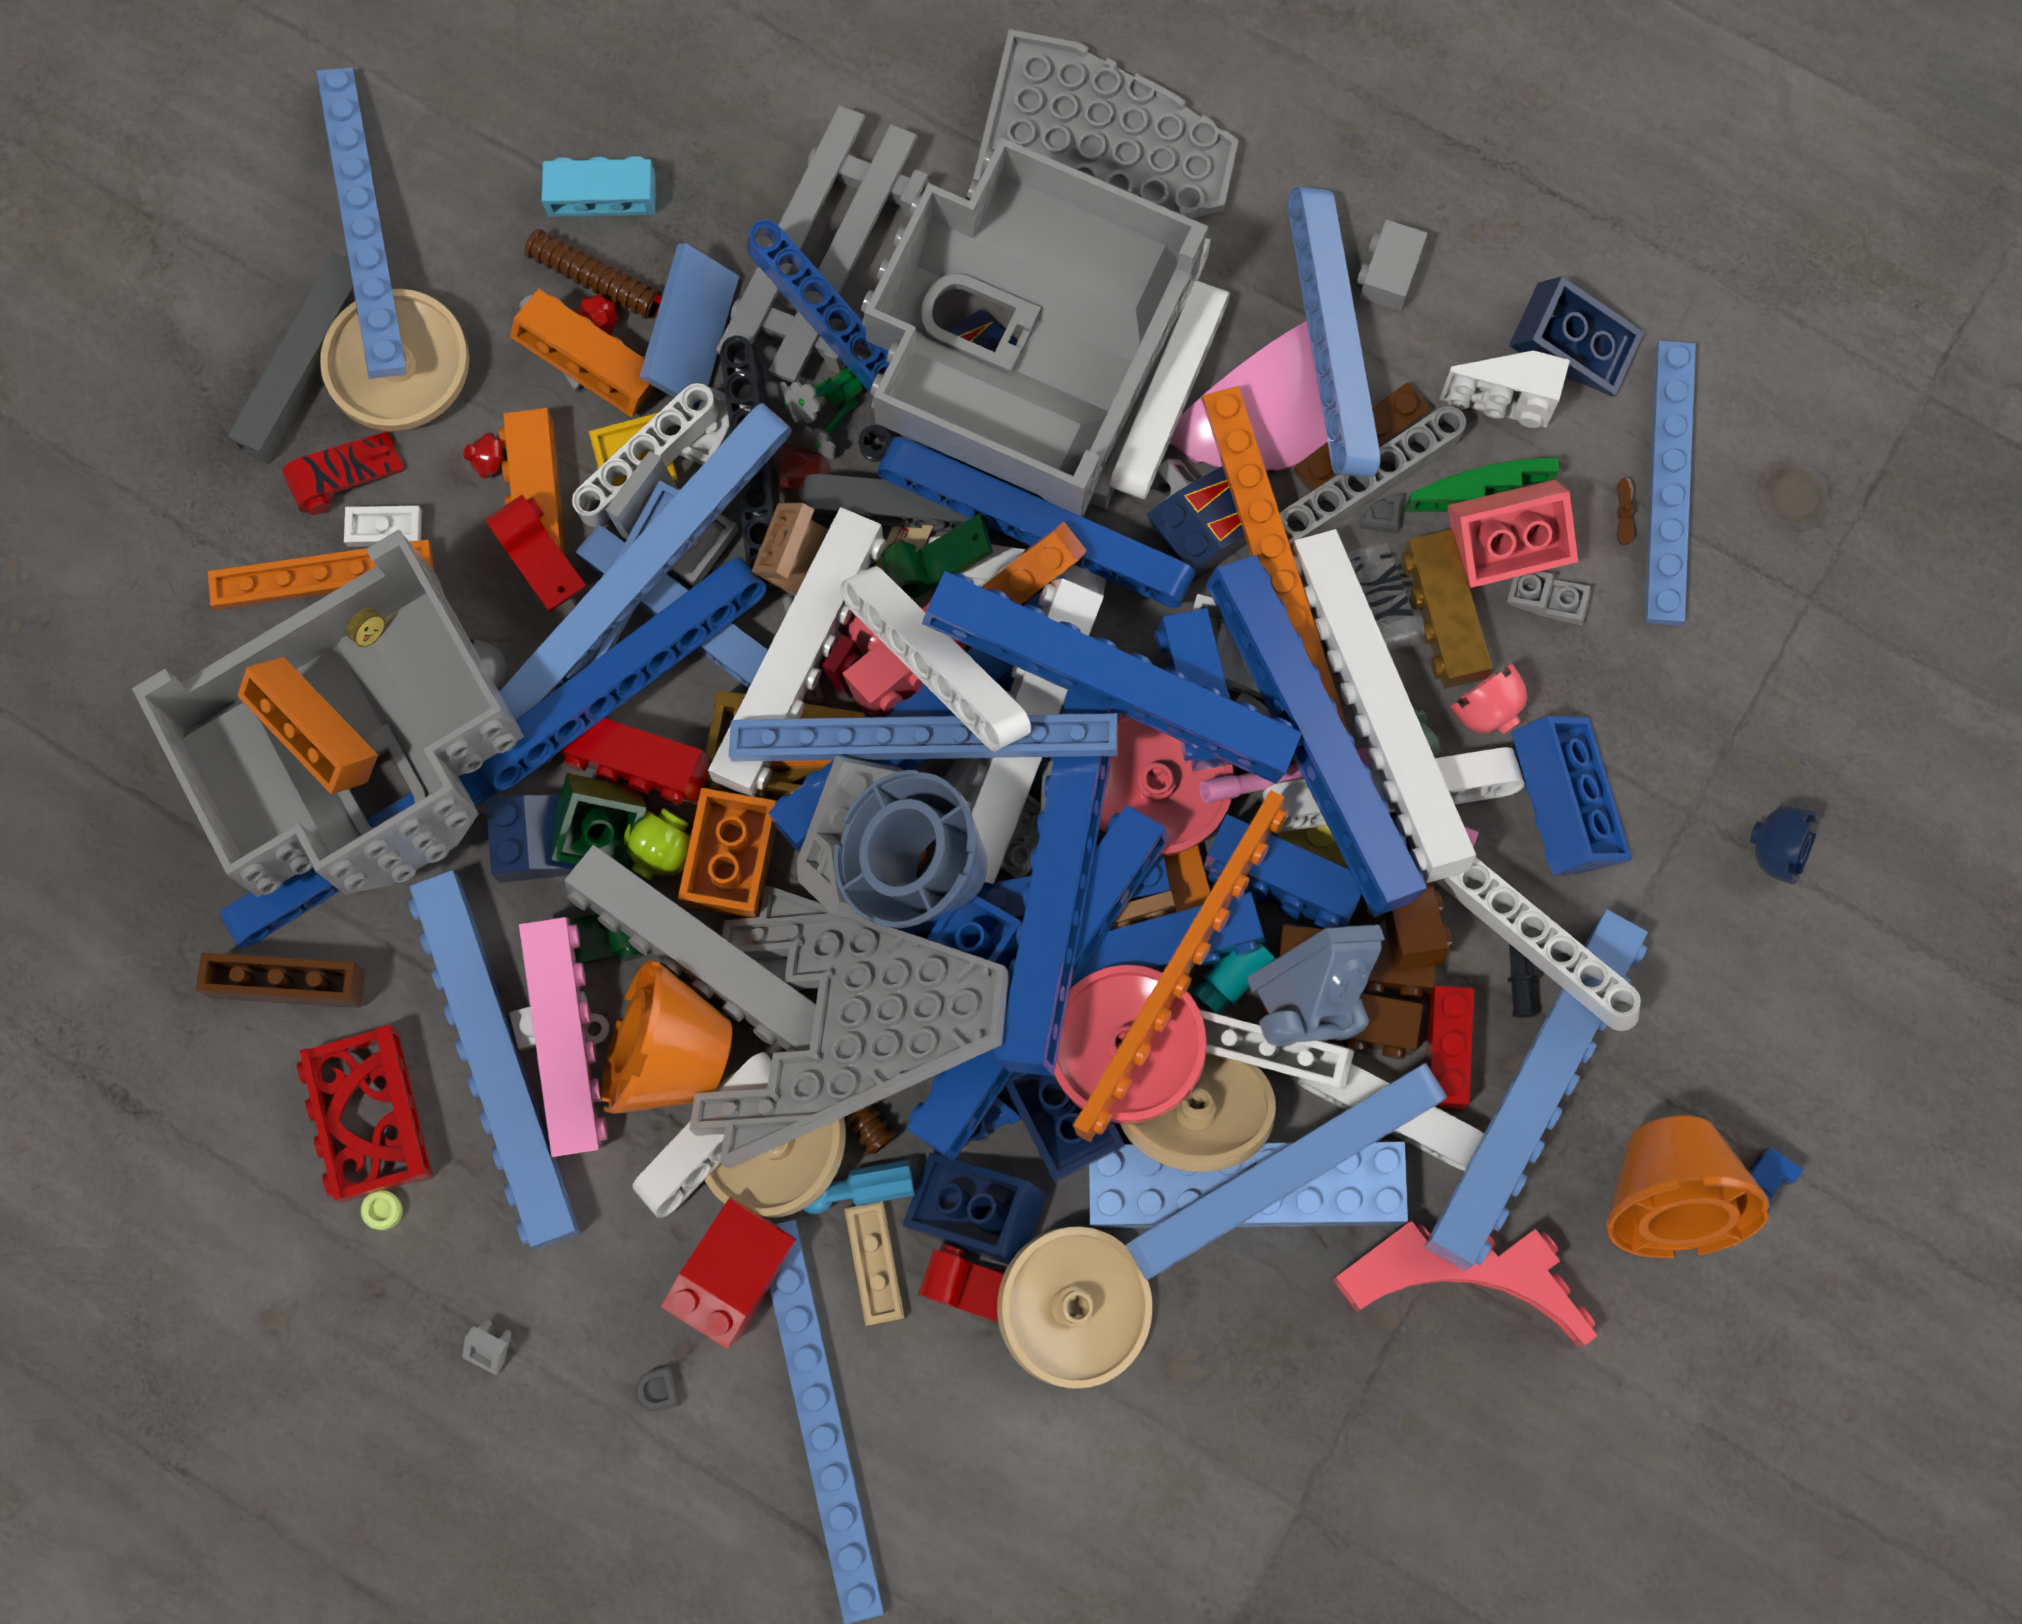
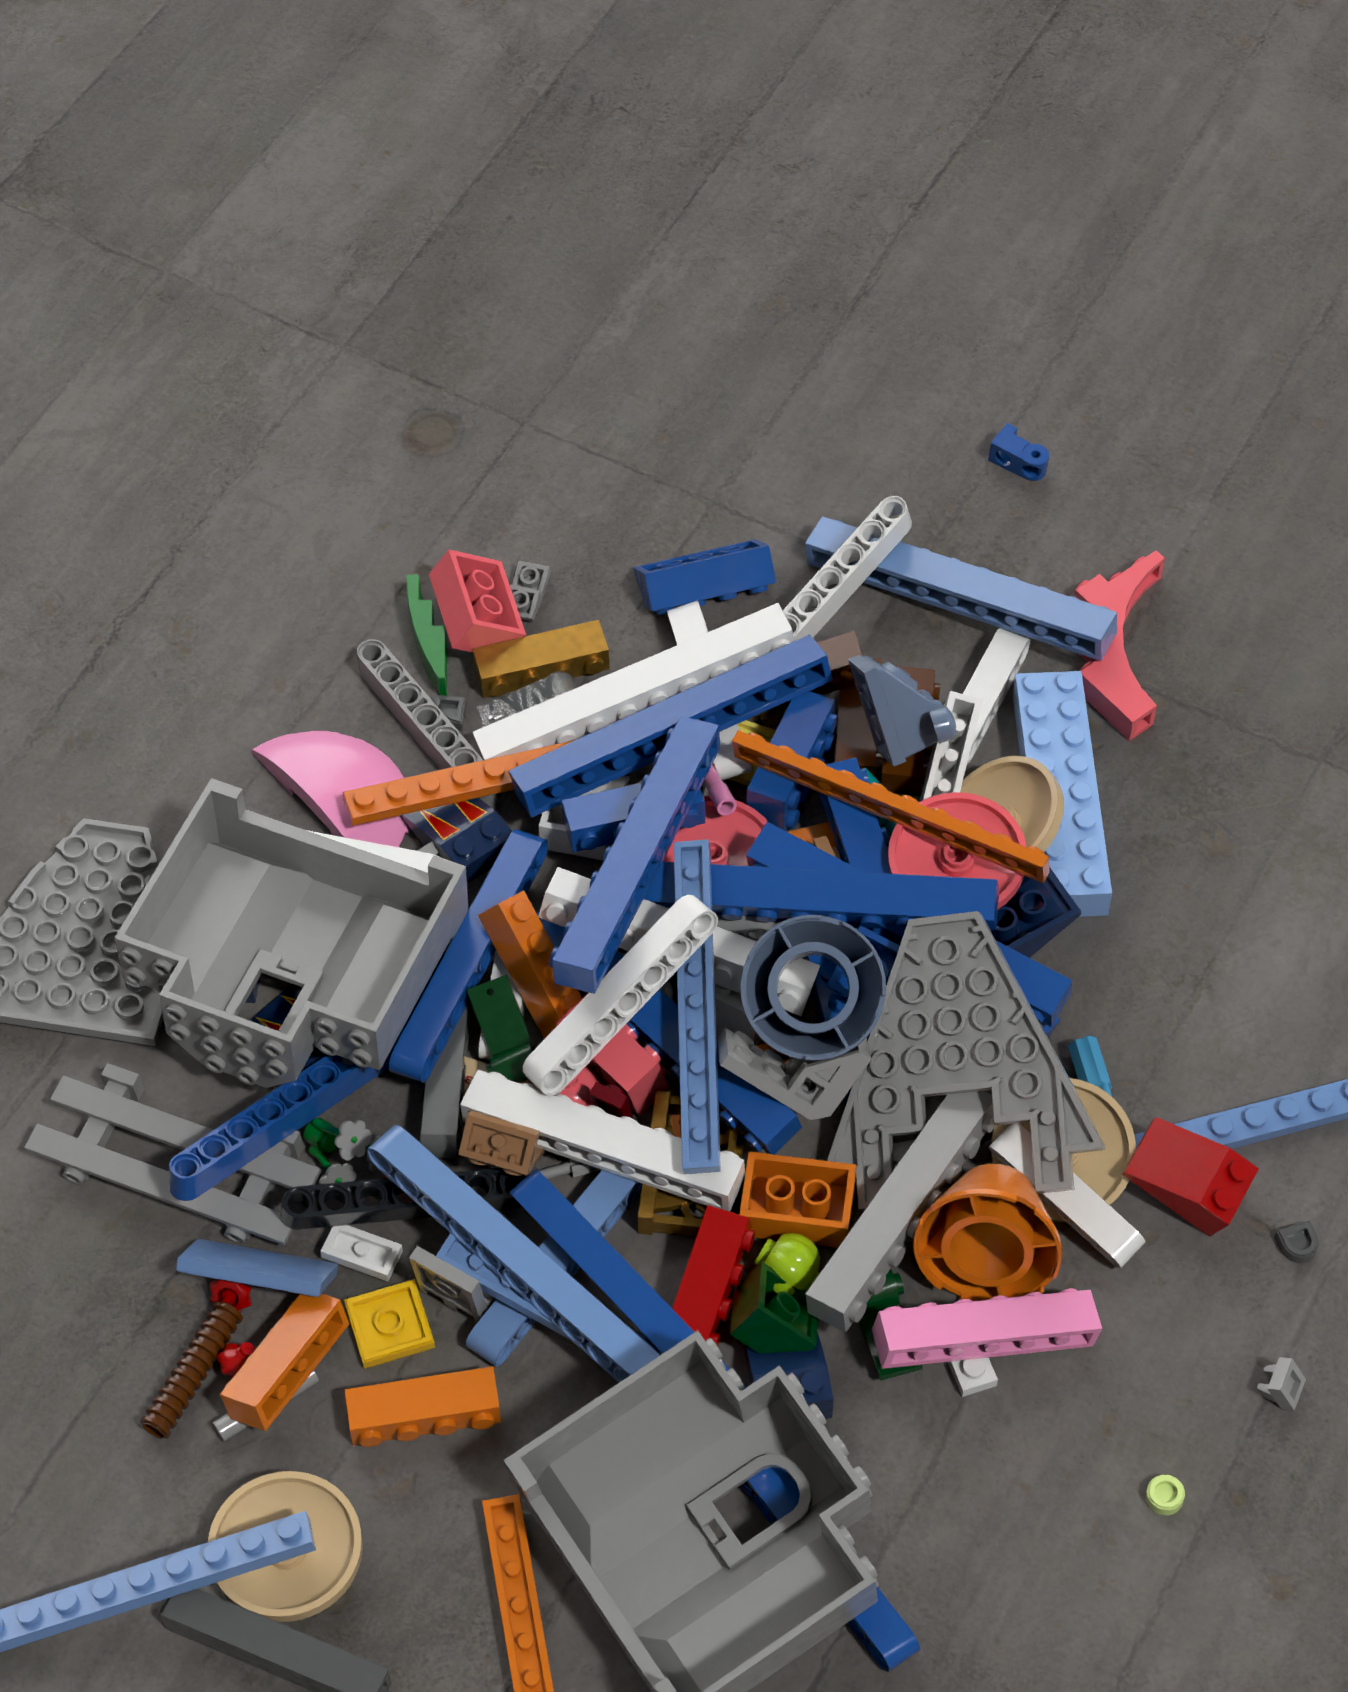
camera: 95 degrees left, 20 degrees down
(280, 980) = (952, 1596): reddish brown brick -> none
(307, 725) = (703, 1551): orange brick -> none
(321, 474) = (406, 1599): red door -> none
(365, 627) = (594, 1514): tile -> none
(371, 524) = (465, 1551): white plate -> none
(408, 1145) = (1050, 1481): red fence -> none
(485, 455) = (390, 1453): red piece -> none
(494, 1061) = (1016, 1395): medium blue brick -> none
(535, 552) = (503, 1384): red door -> none
(598, 187) = (94, 1369): medium azure brick -> none
(650, 437) = (401, 1310): white beam -> none
(867, 450) = (368, 1107): black bush -> none
(874, 1263) = (1162, 1074): tan tile -> none
(961, 1283) = (1174, 987): red door -> none
(974, 1208) = (1105, 992): dark blue slope -> none
(1074, 1307) = (1182, 909): tan dish -> none
(1286, 1171) = (1056, 745): medium blue beam -> none
(1333, 332) = (267, 743): medium blue beam -> none
(1391, 418) = (380, 726): reddish brown plate -> none
(1392, 265) = (215, 701): light grey brick -> none
(1451, 1043) = (948, 652): red brick -> none
(1493, 703) = (625, 622): coral cylinder -> none
(1509, 386) = (343, 601): white slope -> none
(1522, 984) = (867, 609): black axle -> none
(1578, 328) = (287, 571): dark blue slope -> none
(1625, 528) = (449, 541): reddish brown piece -> none
(1670, 483) = (421, 510): medium blue plate -> none
(1683, 1192) = (1032, 488): orange cone -> none
(1784, 842) = (739, 430): dark blue cylinder -> none

